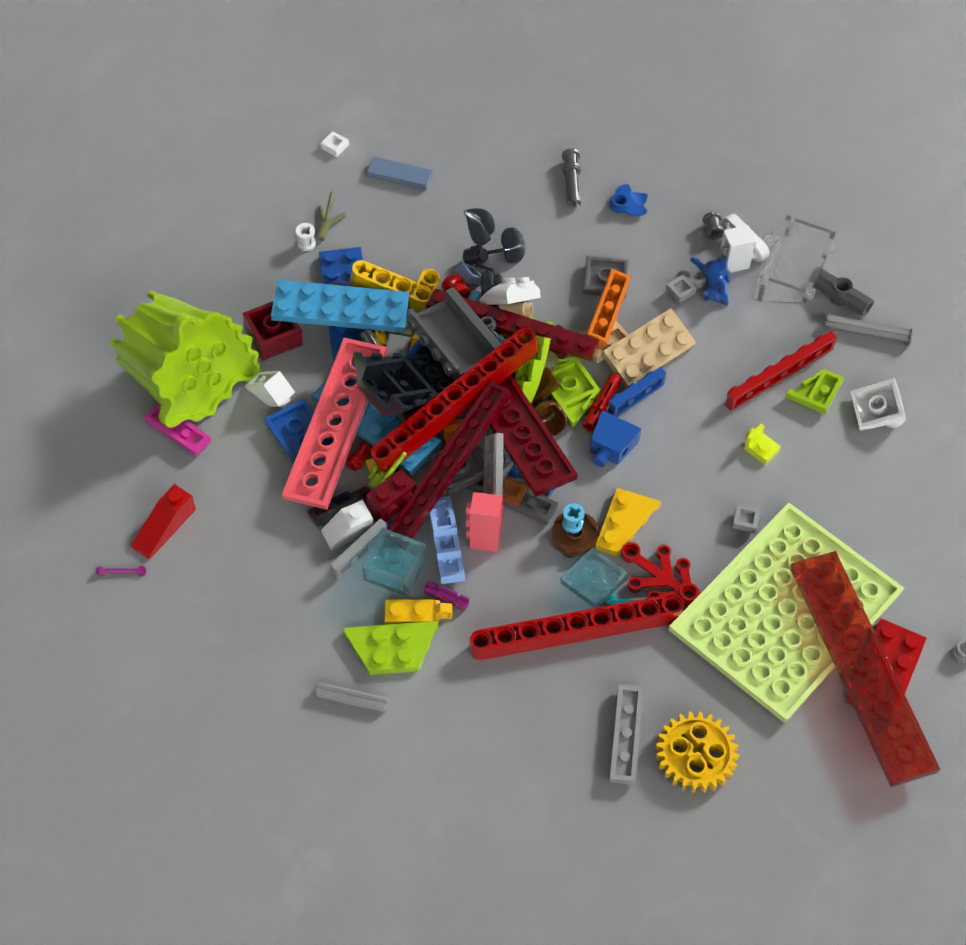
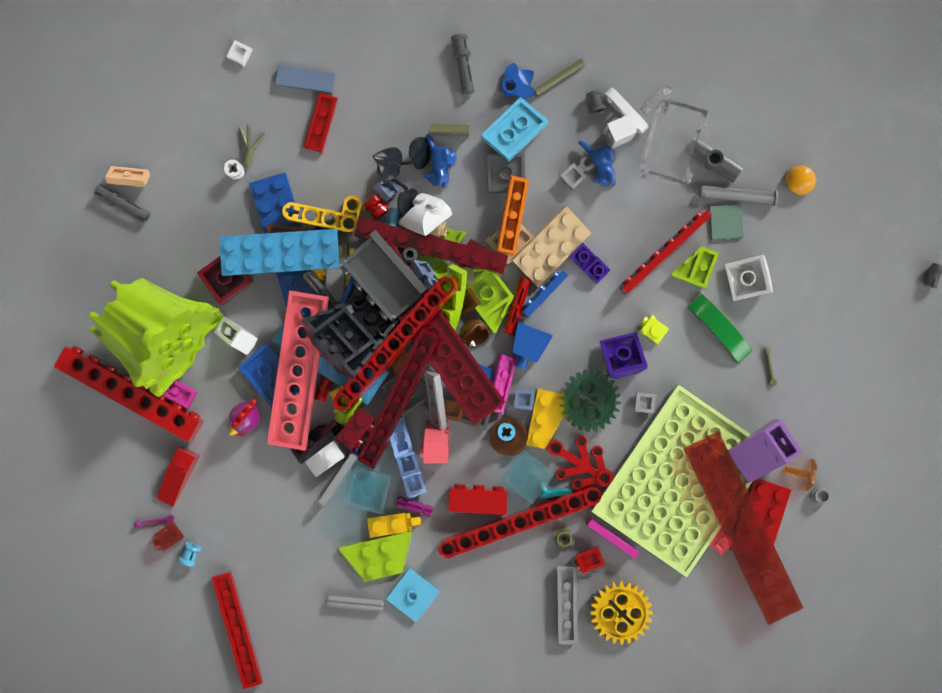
camera: 10 degrees left, 30 degrees up
(70, 392) = (68, 362): none -> red brick
(131, 586) = (167, 537): none -> clear red bracket
(155, 609) = (189, 554): none -> medium azure bush
(168, 247) = (127, 206): none -> dark grey pin
(179, 229) = (127, 176): none -> light nougat plate
(193, 707) = (237, 630): none -> red plate
(262, 464) = (244, 418): none -> magenta piece
(408, 211) = (321, 123): none -> red tile
(427, 697) = (412, 595): none -> medium azure plate
(527, 595) = (478, 499): none -> red brick
(535, 255) = (441, 160): none -> blue animal
(549, 231) = (449, 130): none -> olive tile
(581, 461) = (503, 377): none -> dark pink tile
(598, 496) = (524, 399): none -> sand blue plate
(620, 236) = (514, 129): none -> medium azure plate
(630, 650) = (564, 533): none -> olive plate
(661, 683) = (589, 560): none -> red bracket
(675, 203) = (559, 77): none -> olive bar
(679, 505) = (599, 385): none -> clear green gear
(691, 373) = (589, 263): none -> dark purple slope
(693, 661) = (612, 537): none -> dark pink tile
(724, 466) = (623, 355): none -> dark purple slope
(832, 689) = (720, 543): none -> coral tile
(847, 454) = (720, 327): none -> green slope
(854, 354) = (726, 222): none -> sand green piece
(893, 577) = (764, 450): none -> medium lavender slope
(905, 520) = (772, 382): none -> olive hinge
(941, 323) = (800, 180): none -> light orange hair
(951, 621) = (809, 475): none -> clear orange plant

